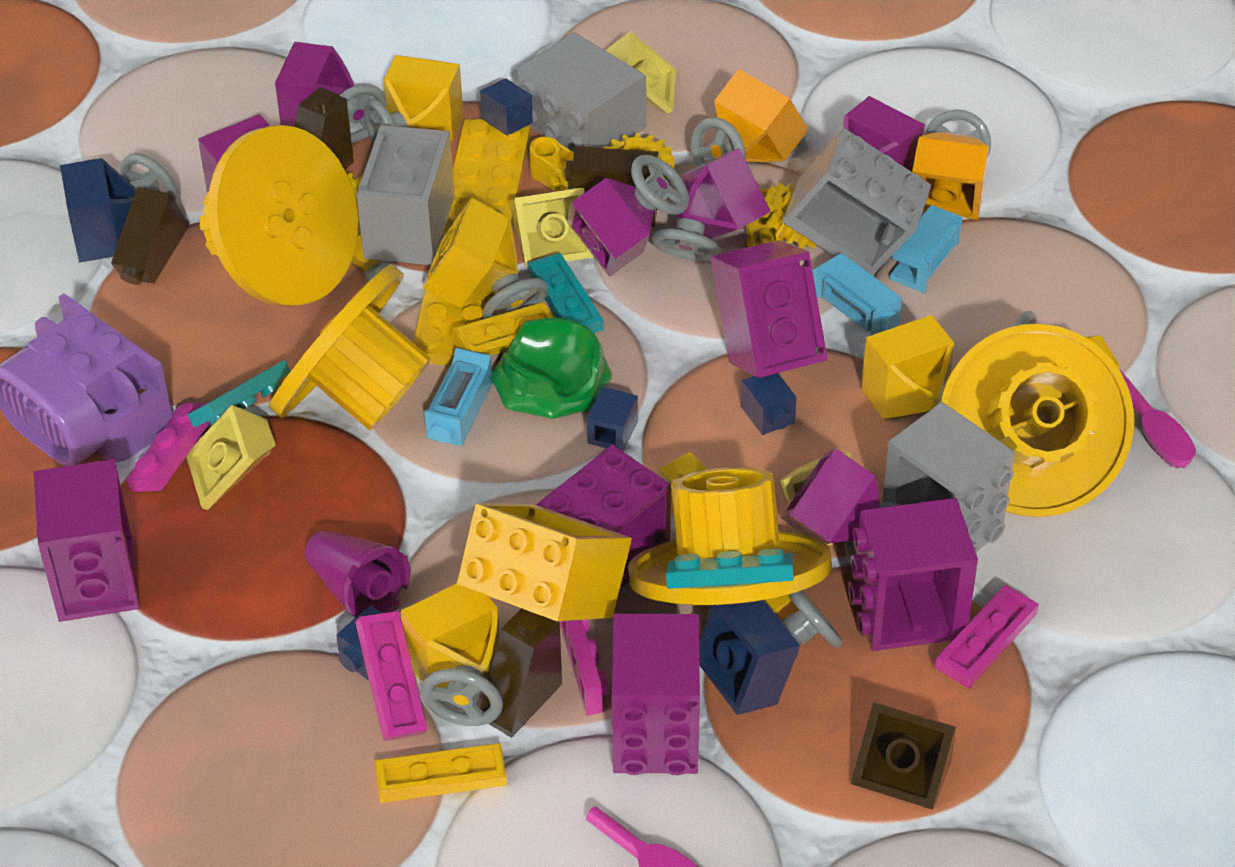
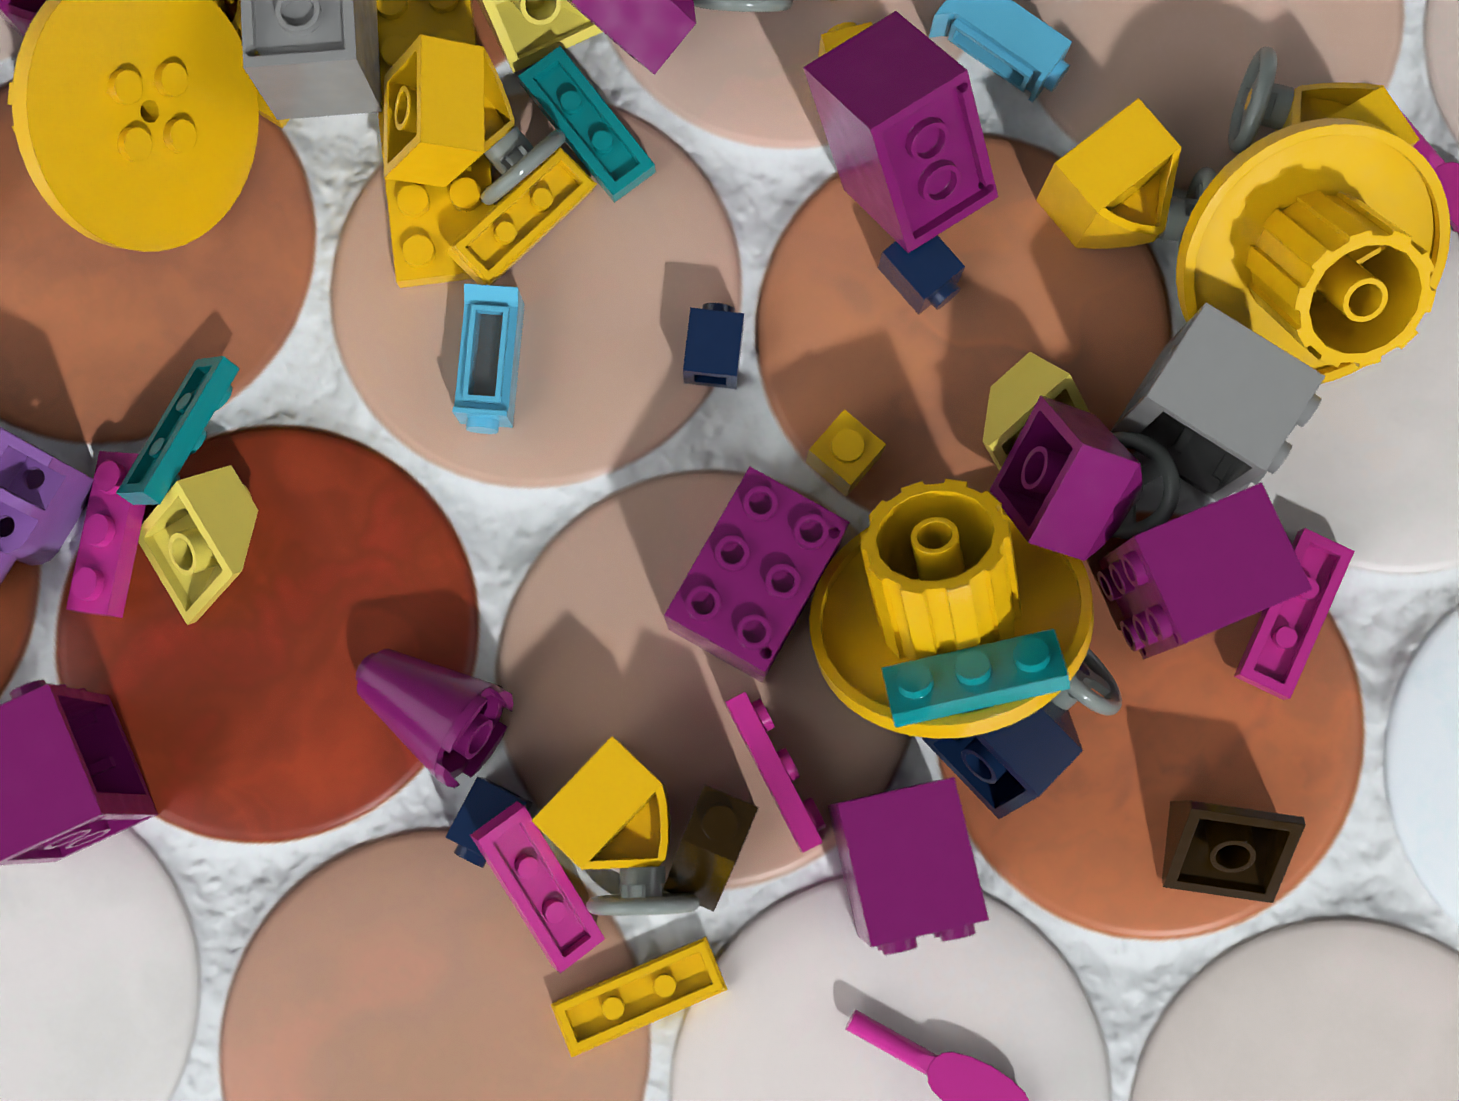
camera: 15 degrees left, 35 degrees up
(357, 358) = (332, 359): yellow piece -> none
(544, 561) = (714, 724): yellow container -> none
(552, 369) = (606, 282): green piece -> none

